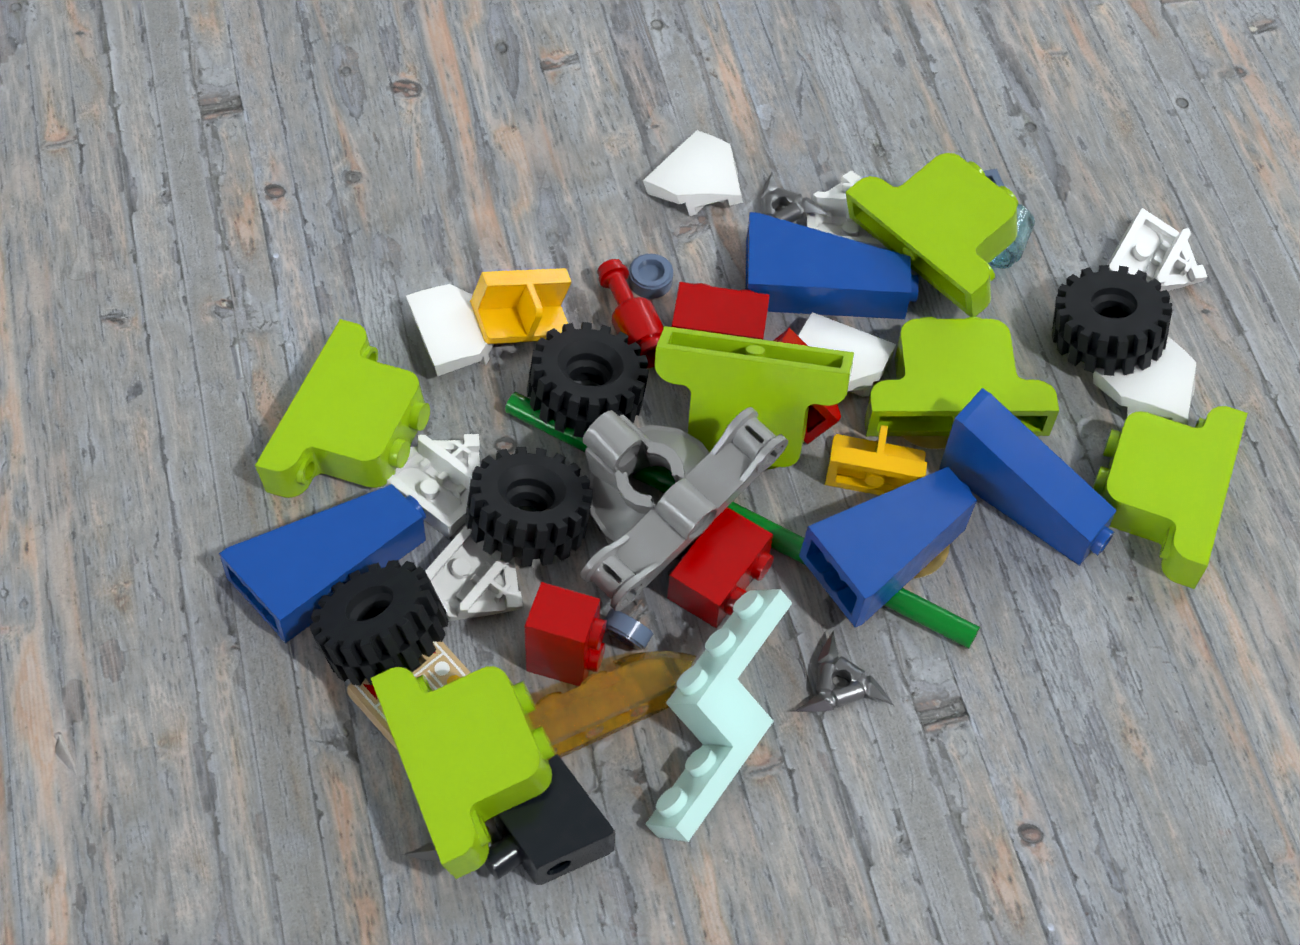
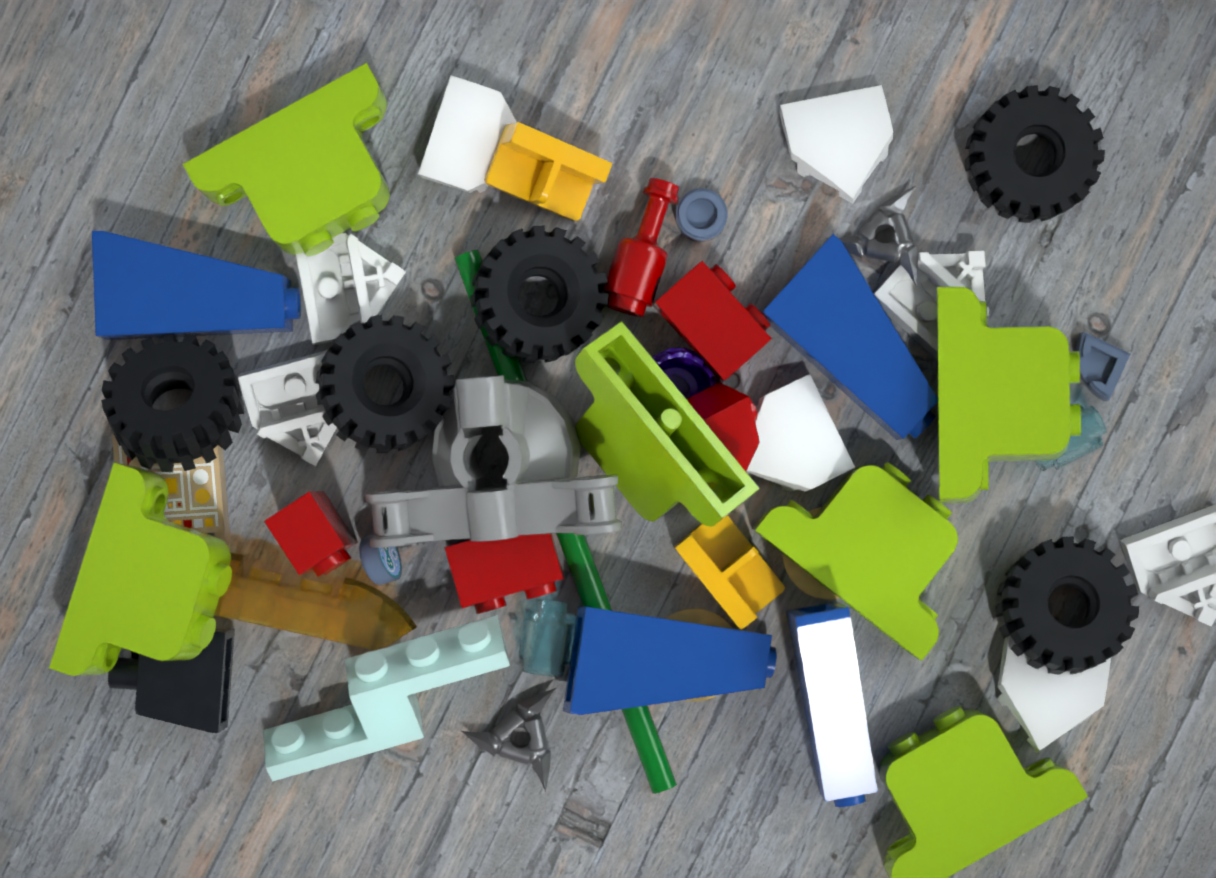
camera: 45 degrees right, 30 degrees up
(801, 587) = (547, 638): none -> clear light blue brick
(821, 125) = (1001, 177): none -> black tyre

